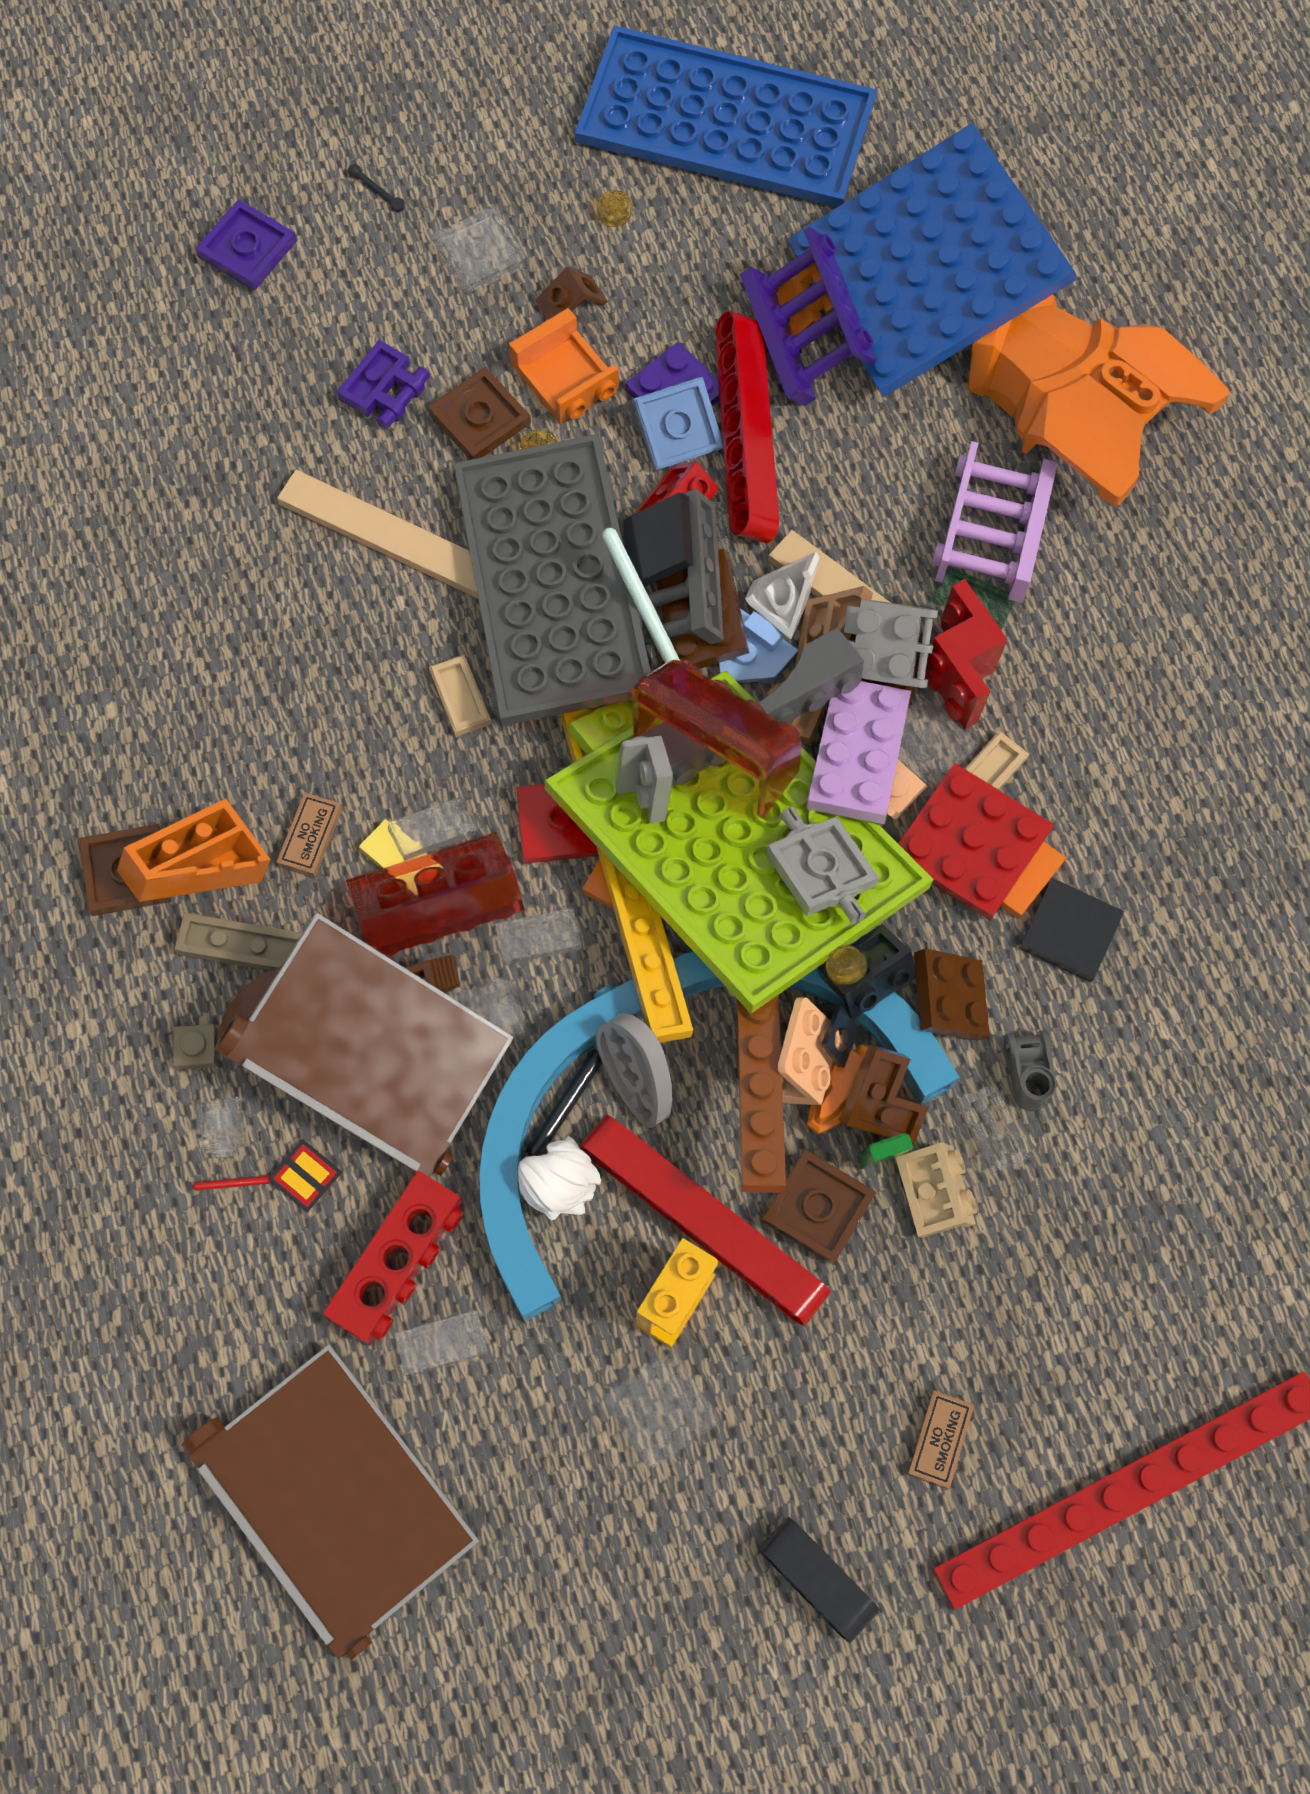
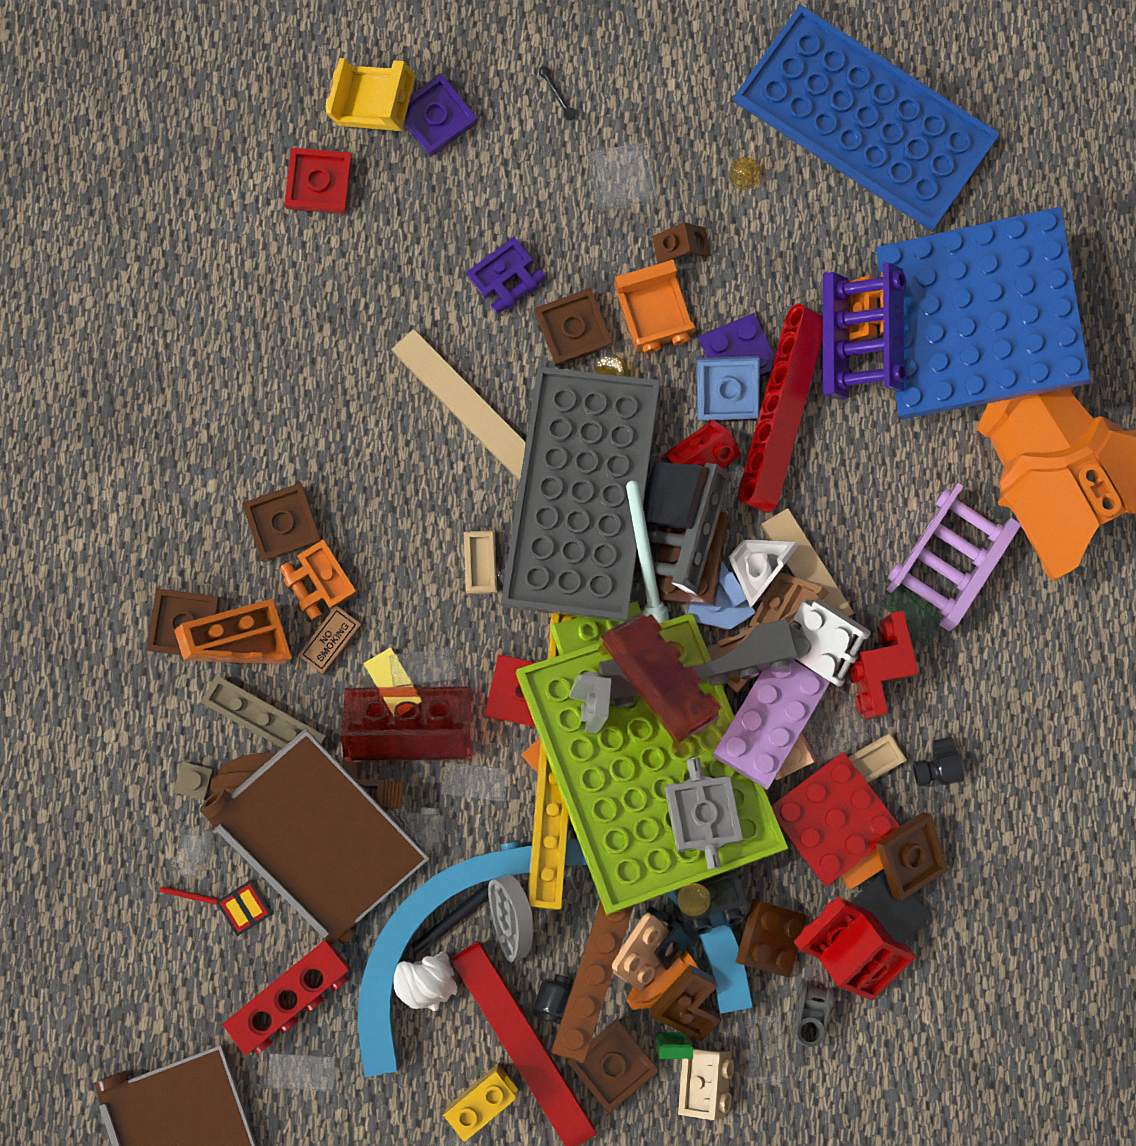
camera: 20 degrees right, 10 degrees up
(132, 348) = (318, 180): none -> red plate
(165, 243) = (370, 95): none -> yellow panel
(209, 721) = (281, 522): none -> reddish brown plate
(280, 761) = (326, 575): none -> orange plate
(721, 1149) = (553, 997): none -> black head
(1053, 969) = (854, 948): none -> red bracket
(1075, 747) = (944, 767): none -> black piece
(1077, 849) = (911, 856): none -> reddish brown plate

